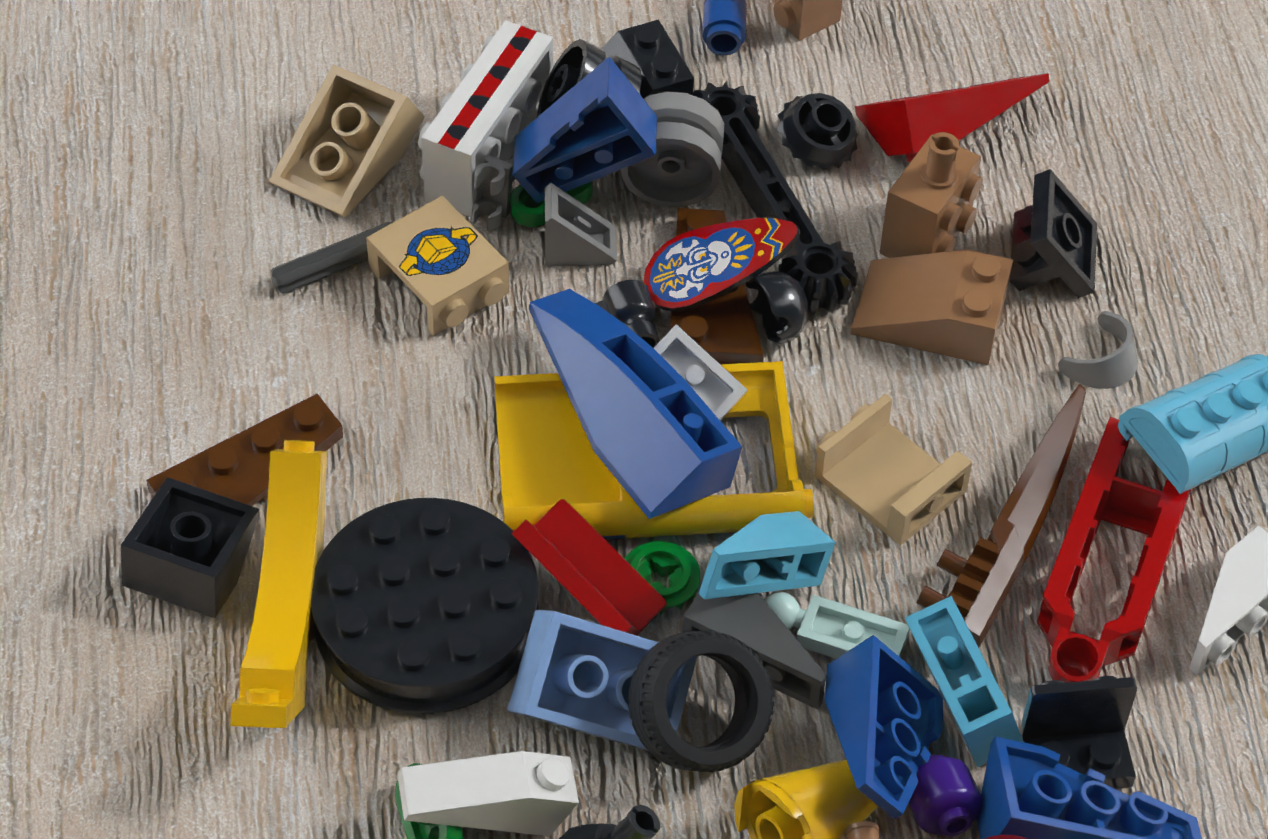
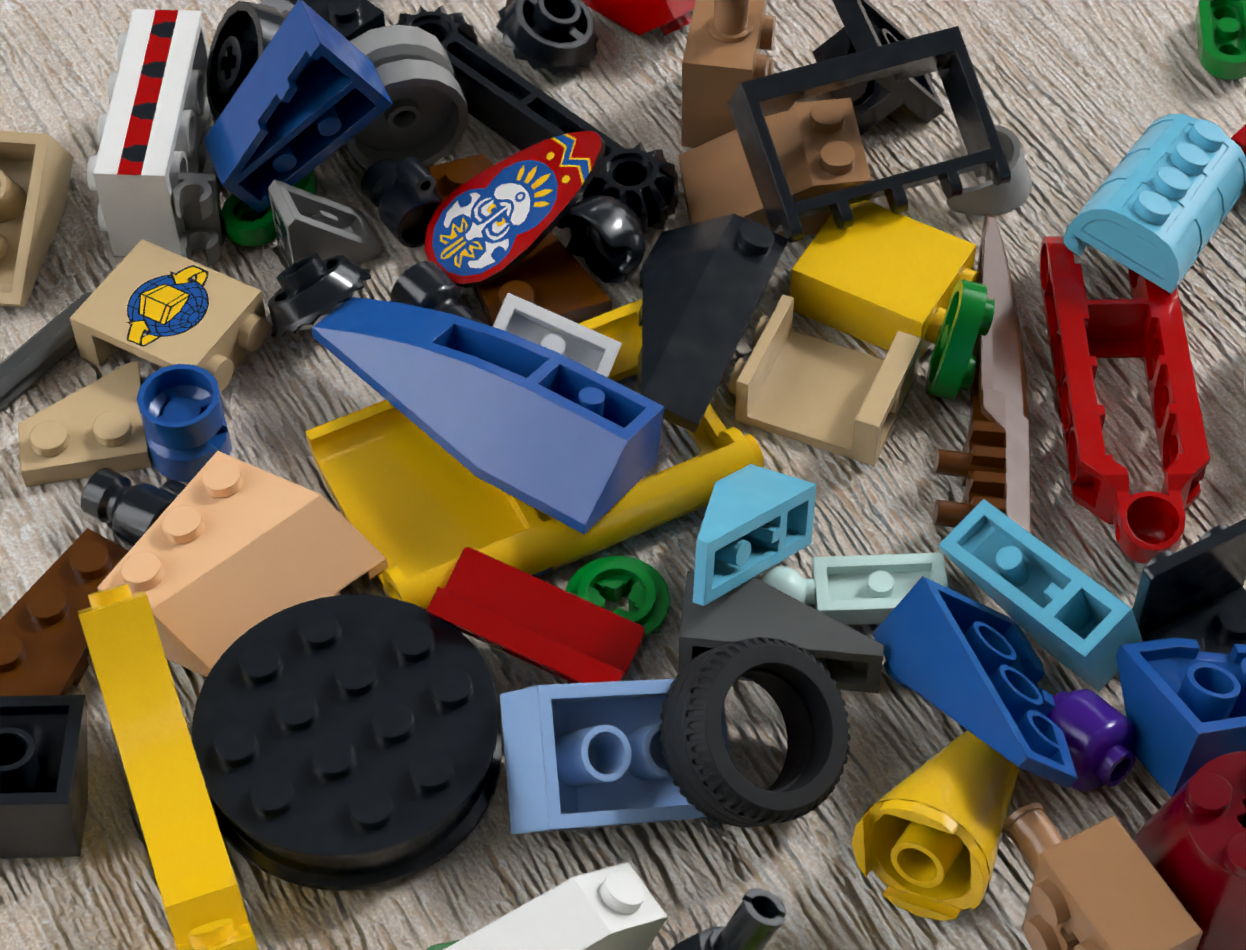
camera: 20 degrees left, 0 degrees up
(349, 324) = (86, 432): none -> tan wing
(358, 396) = (130, 508): none -> black piece
(406, 447) = (237, 553): none -> light nougat wedge
(414, 341) = (182, 420): none -> blue wheel
(546, 274) = (313, 291): none -> black piece
(646, 226) = (402, 197): none -> black piece
(819, 383) = (696, 307): none -> black wedge
(974, 405) = (881, 276): none -> yellow brick
(1011, 458) = (952, 359): none -> green plate
(1060, 244) = (904, 59): none -> black hinge

